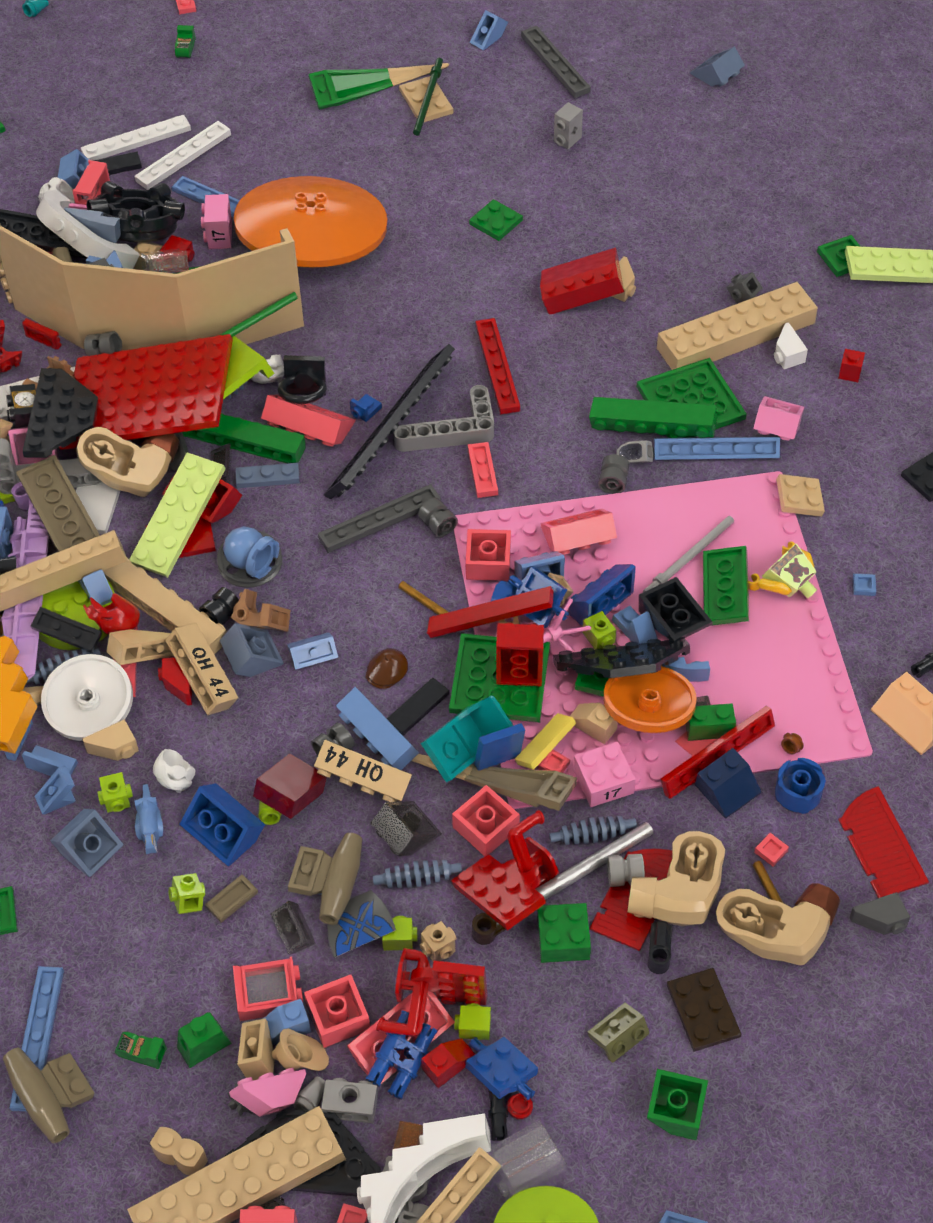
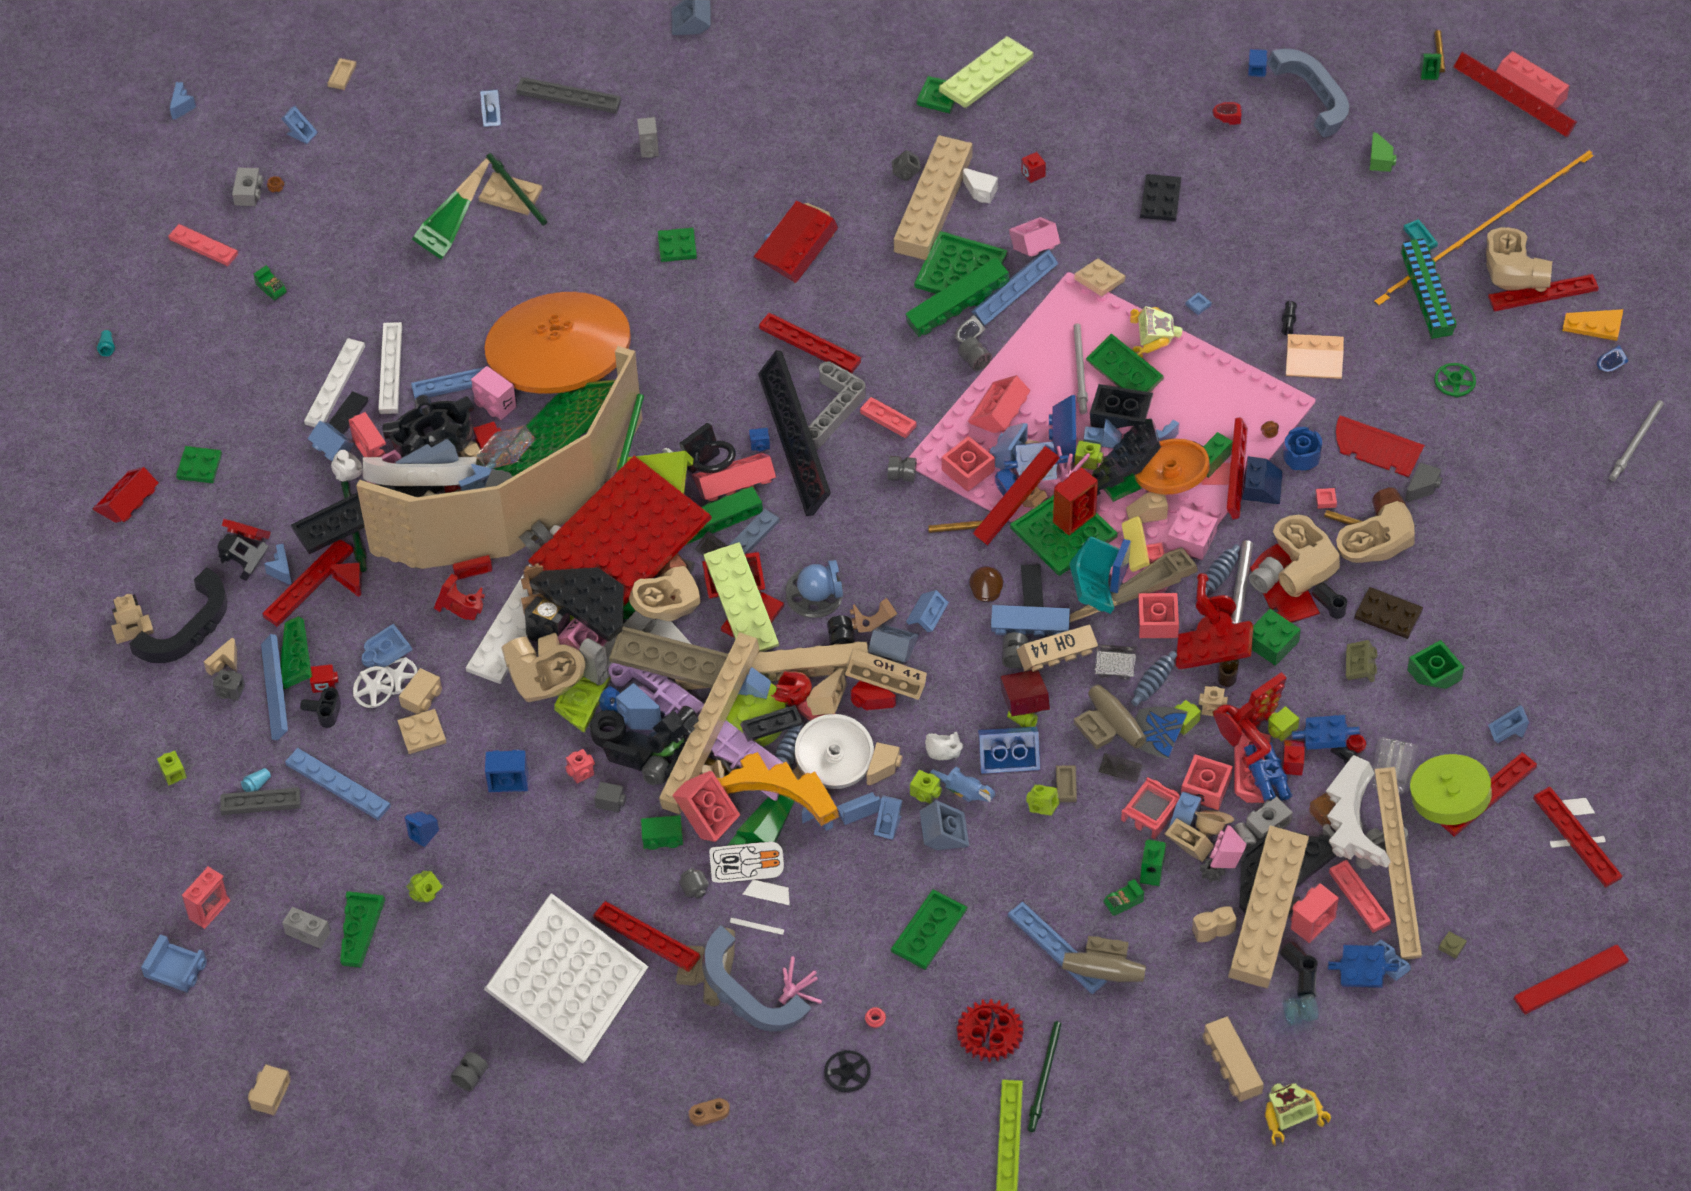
camera: 45 degrees left, 0 degrees up
(376, 519) = (863, 500): dark grey plate -> none

